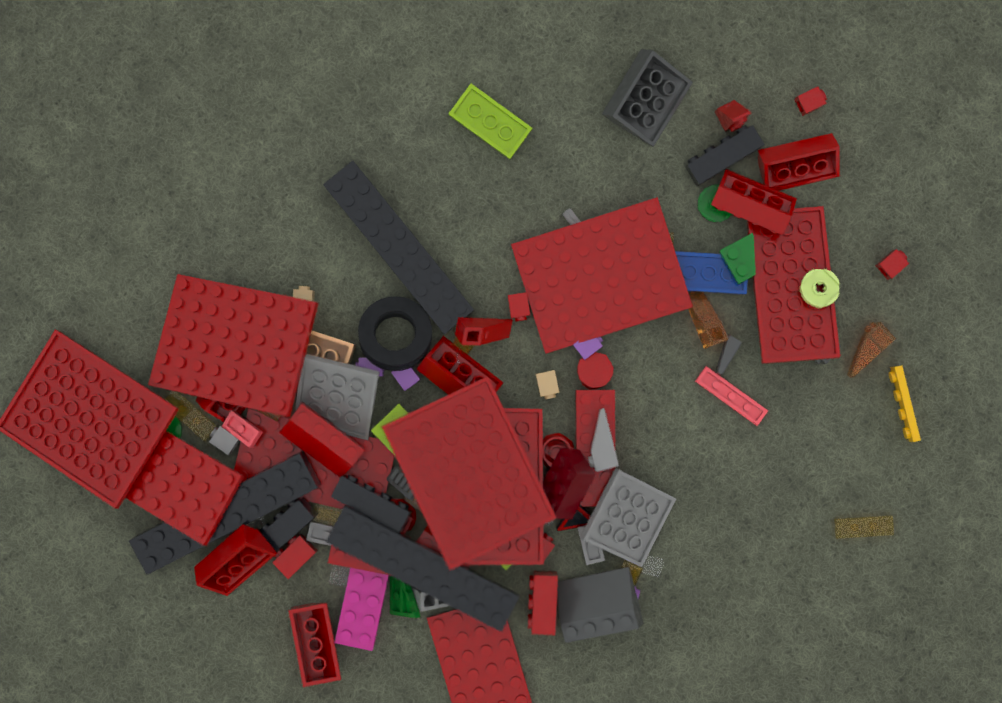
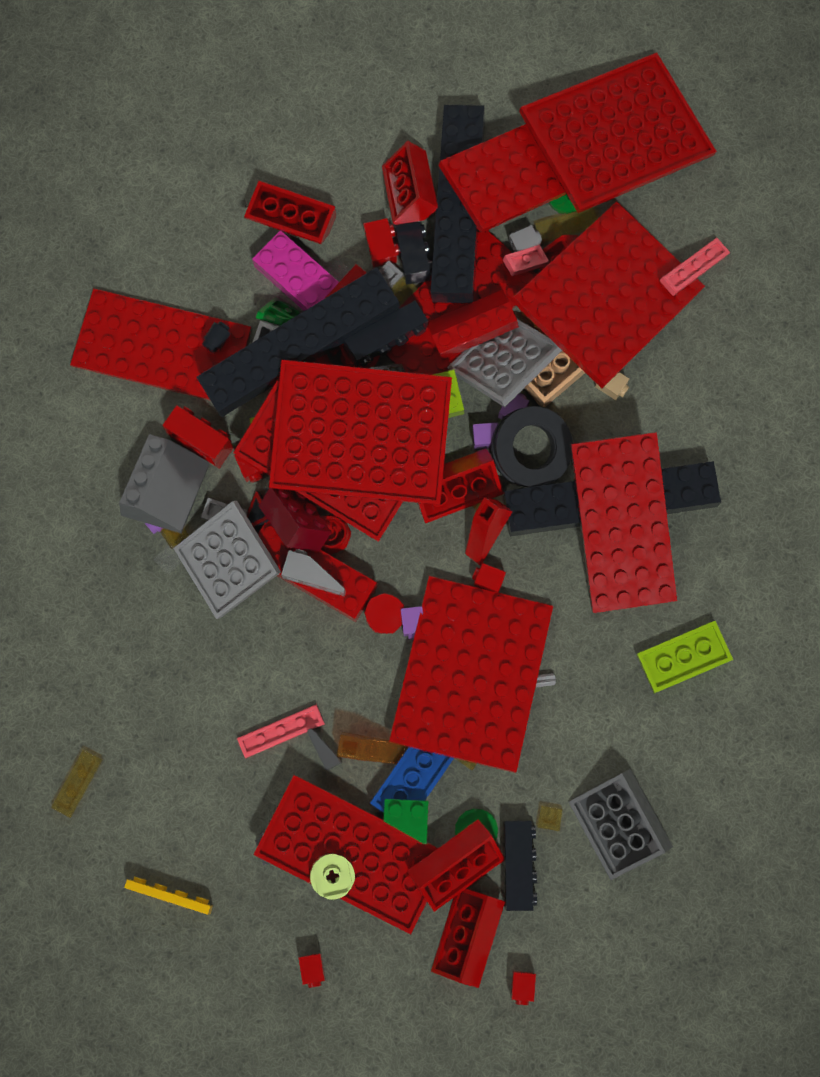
camera: 120 degrees right, 10 degrees down
(166, 290) = (694, 266): none -> coral tile
(413, 226) = (624, 522): none -> red plate
(454, 639) = (216, 337): none -> black brick
(547, 384) = (398, 561): tan brick -> none
(674, 153) = (550, 818): none -> clear yellow tile
(732, 115) = (554, 895): red slope -> none
(870, 346) = (246, 900): clear orange slope -> none

